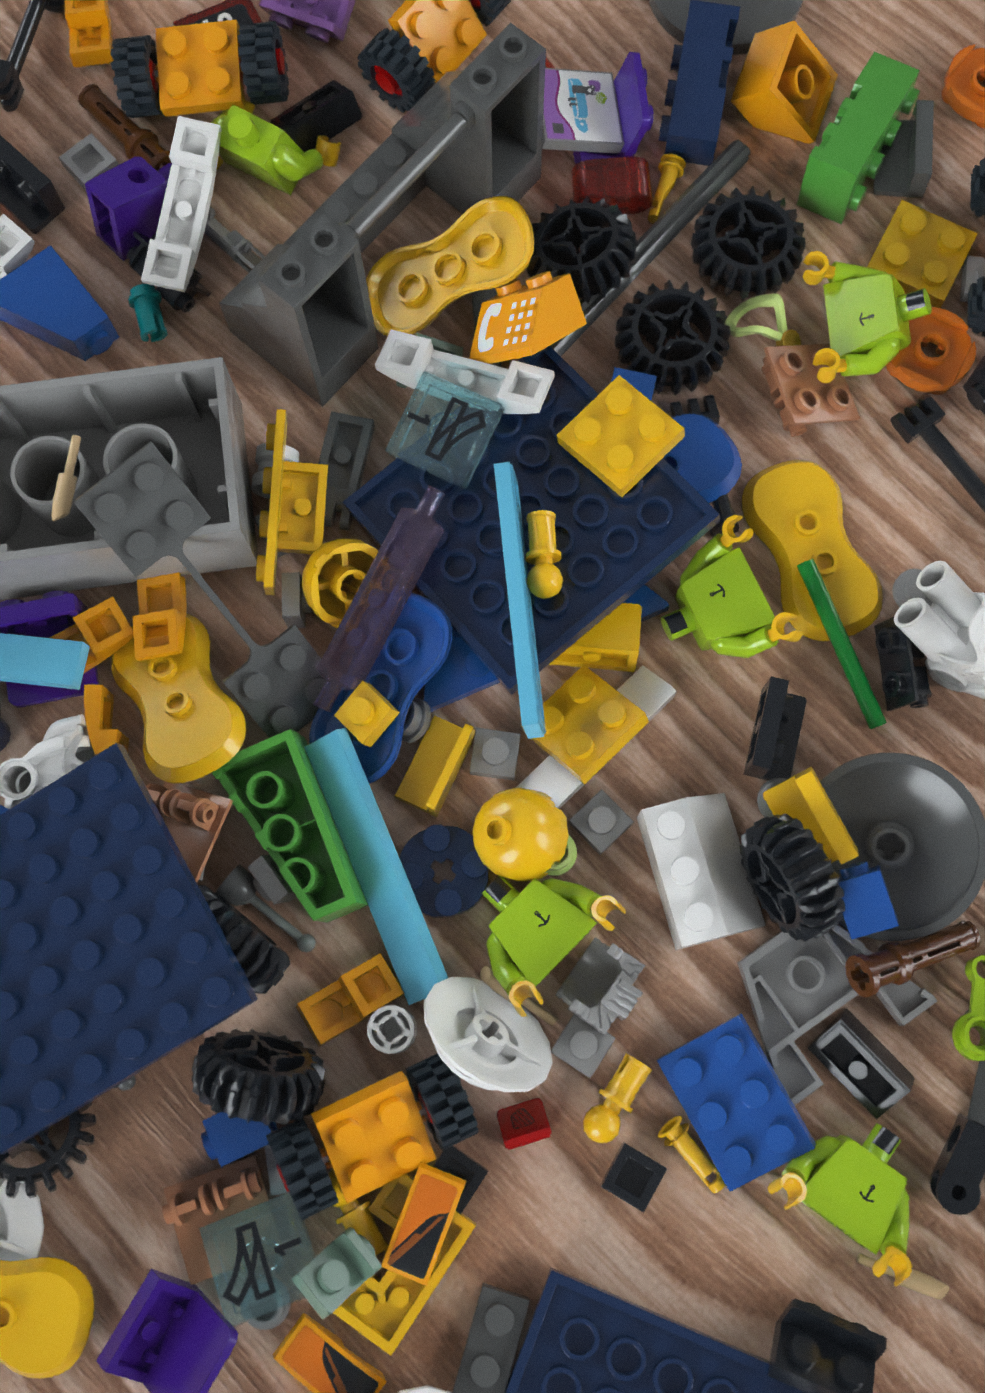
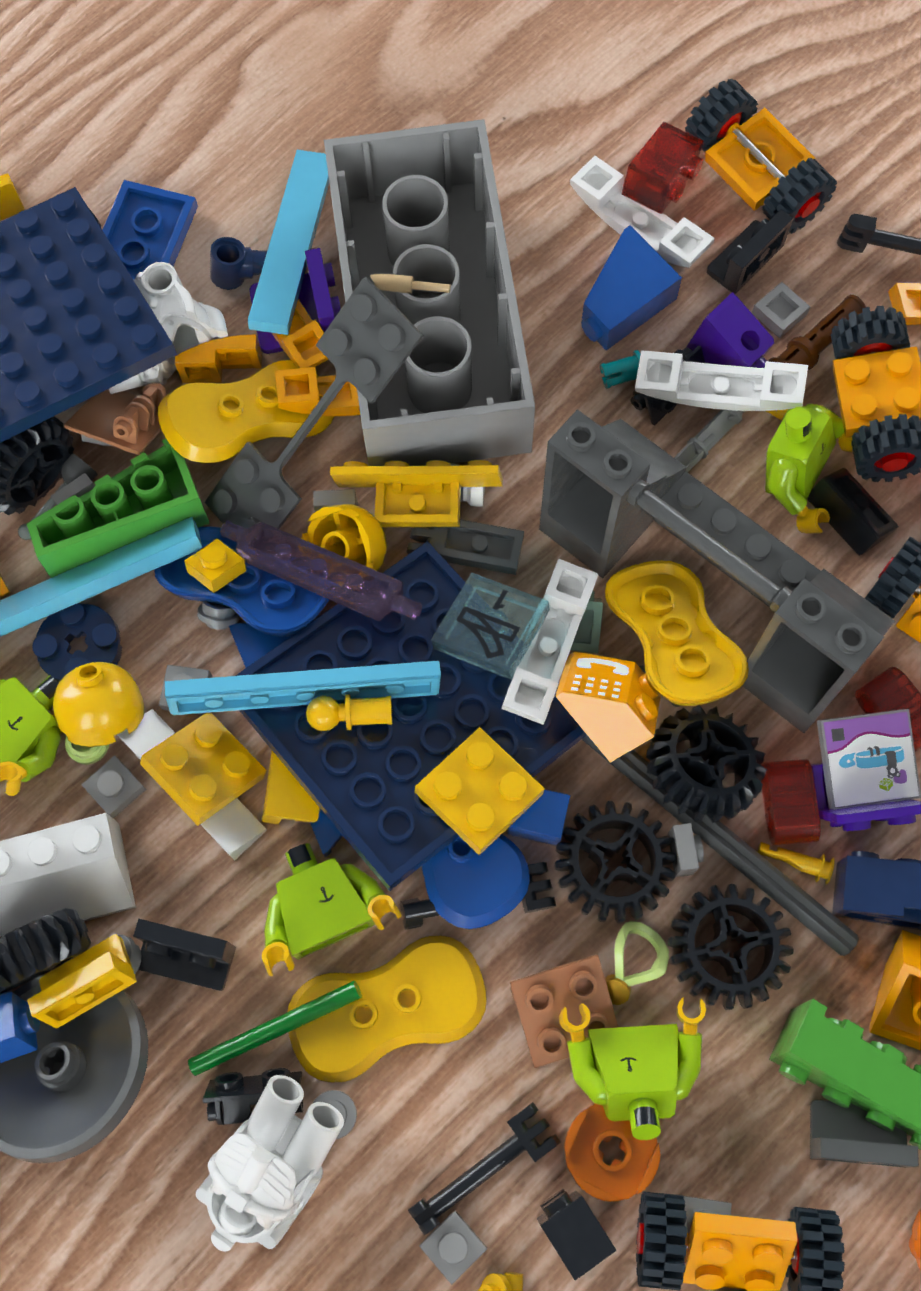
camera: 90 degrees right, 5 degrees down
(435, 765) = (175, 636): yellow panel -> none
(659, 272) = (687, 849): none -> light grey plate
(923, 251) = (734, 1149): yellow plate -> none

